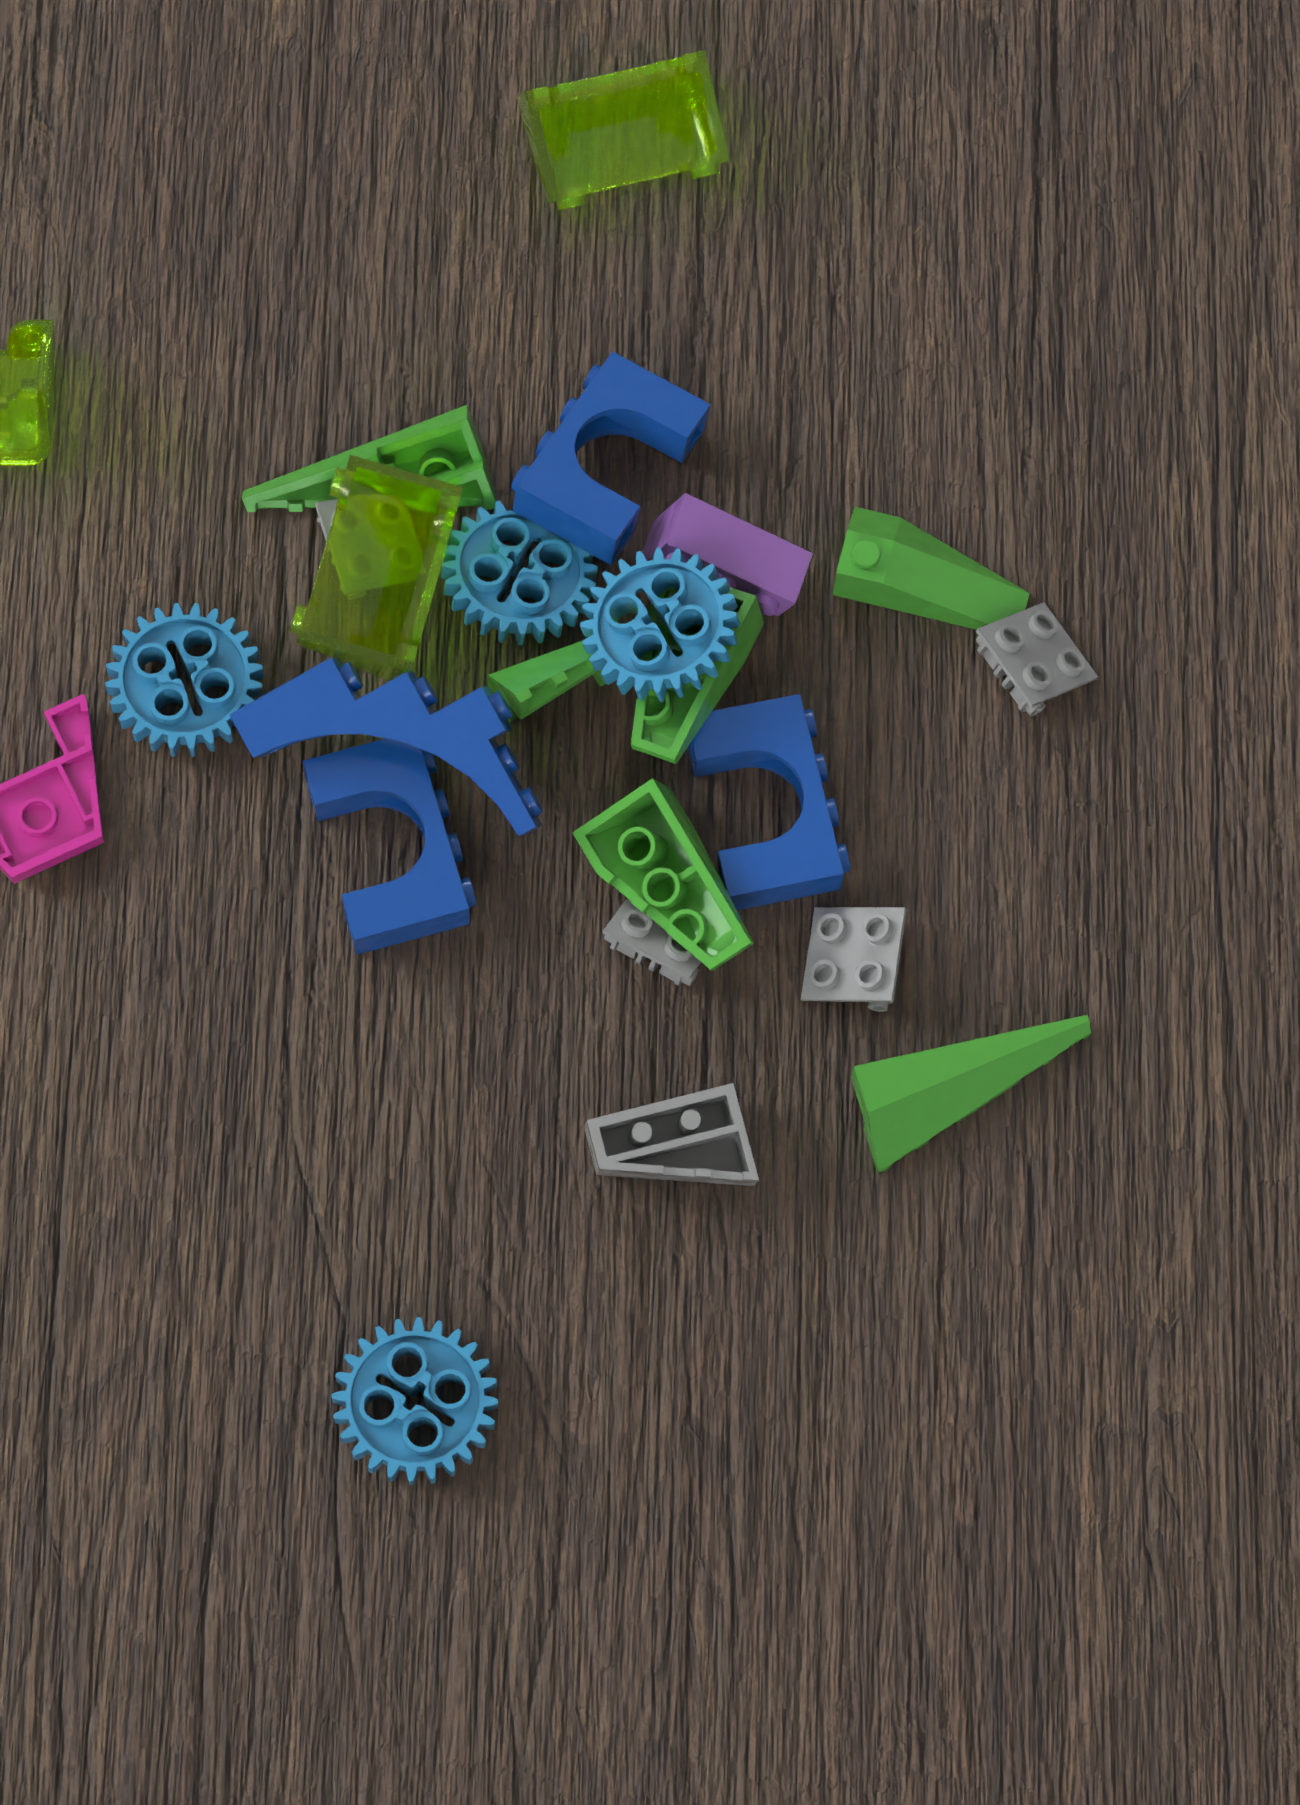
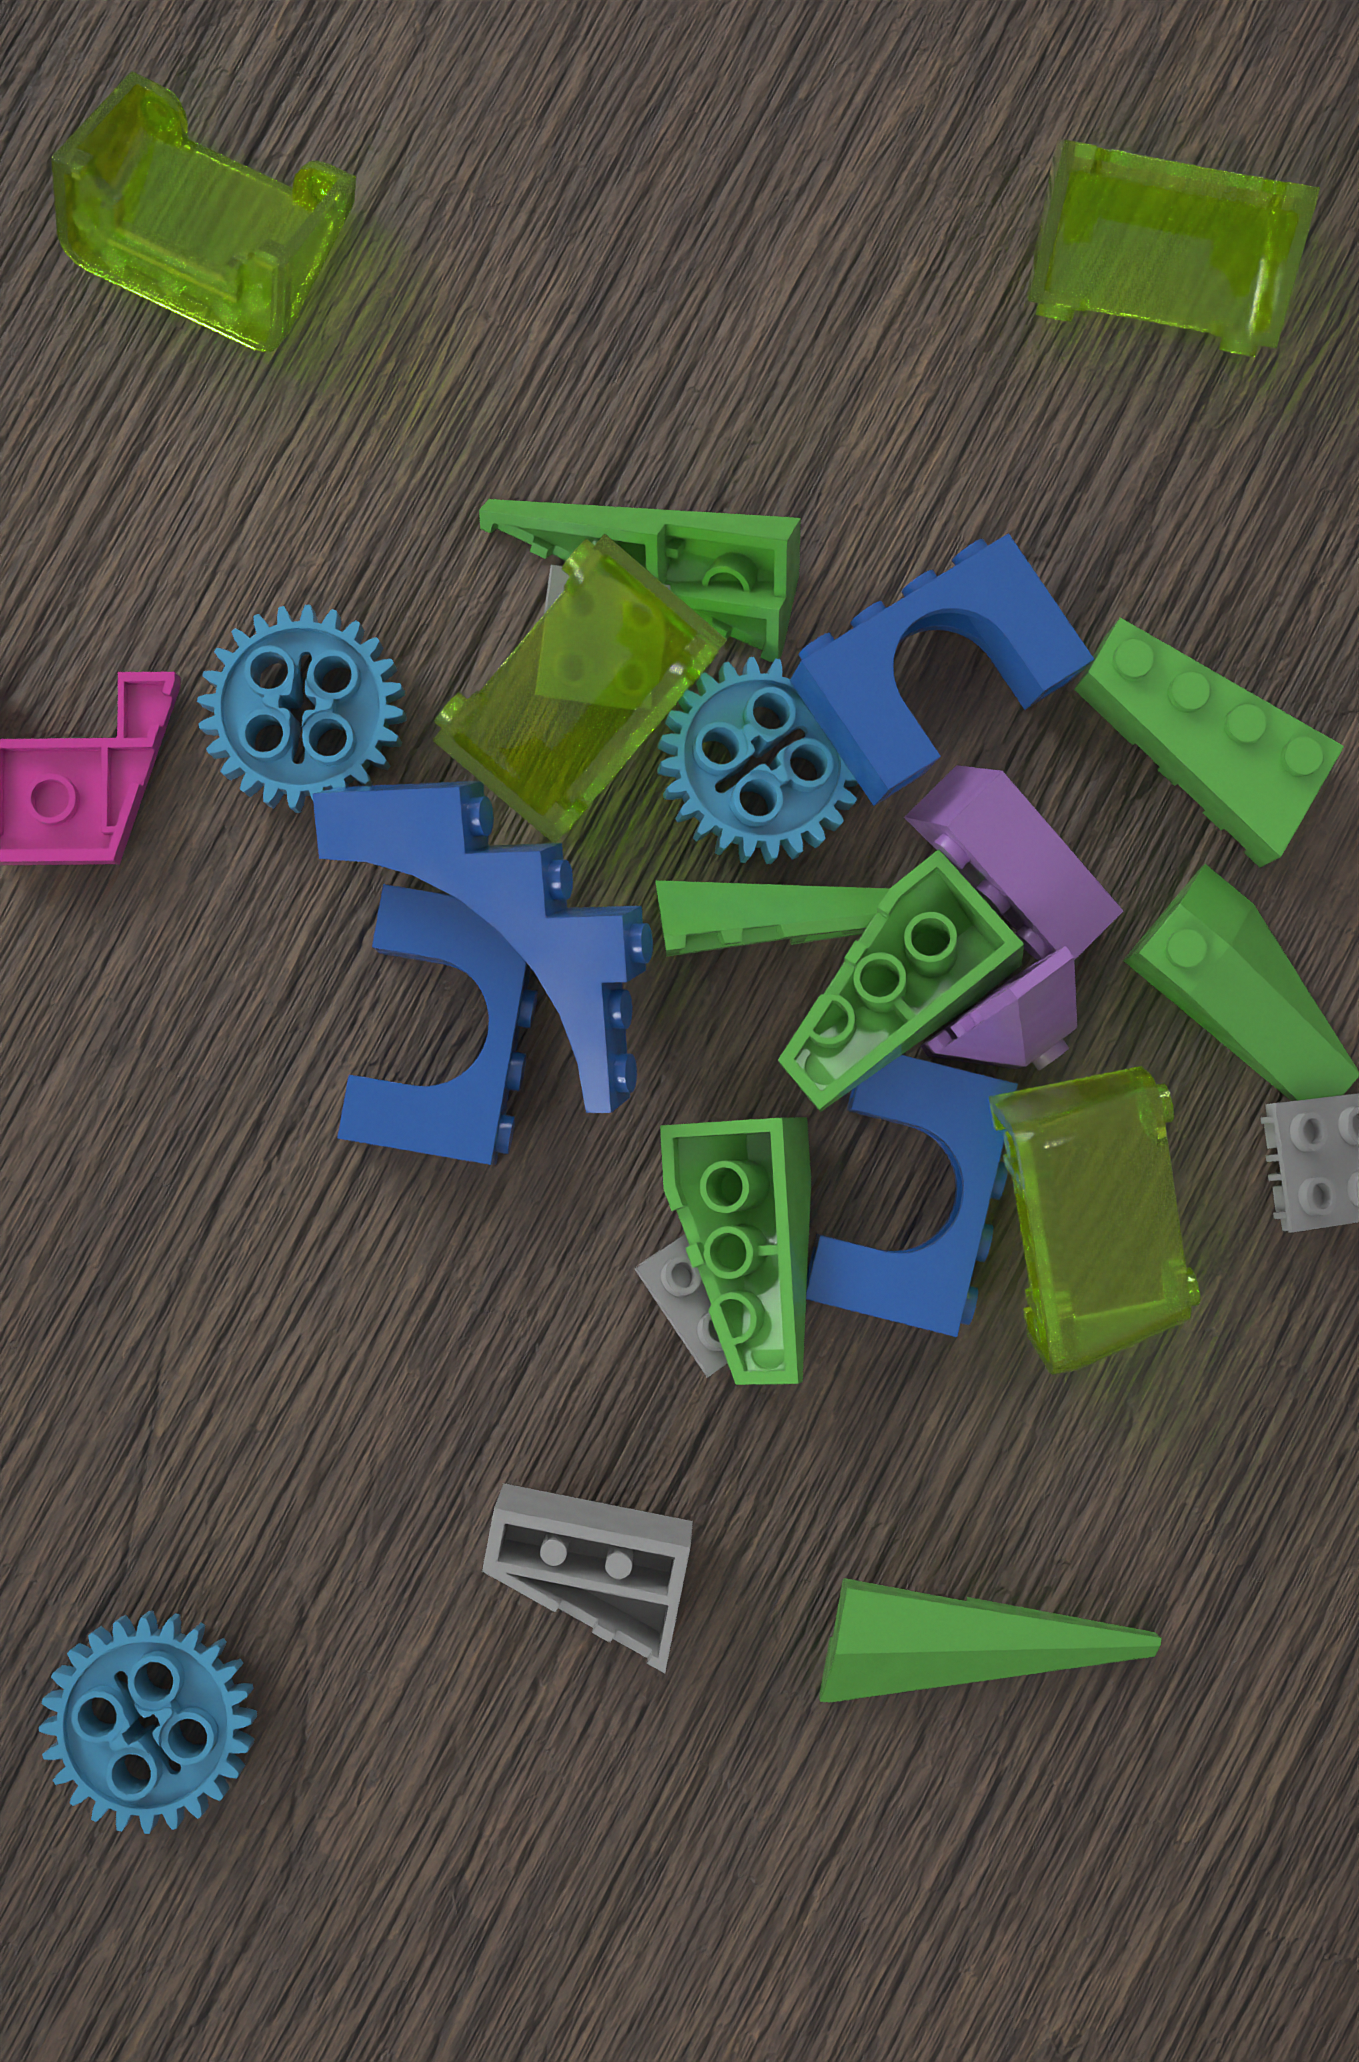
camera: 30 degrees right, 15 degrees up
(699, 601) = (943, 922): dark azure gear -> none
(779, 644) = (1017, 1021): none -> medium lavender wedge
(813, 421) = (1211, 737): none -> bright green wedge
(854, 955) = (922, 1431): light grey hinge -> none
(896, 750) = (1096, 1214): none -> clear neon green windscreen

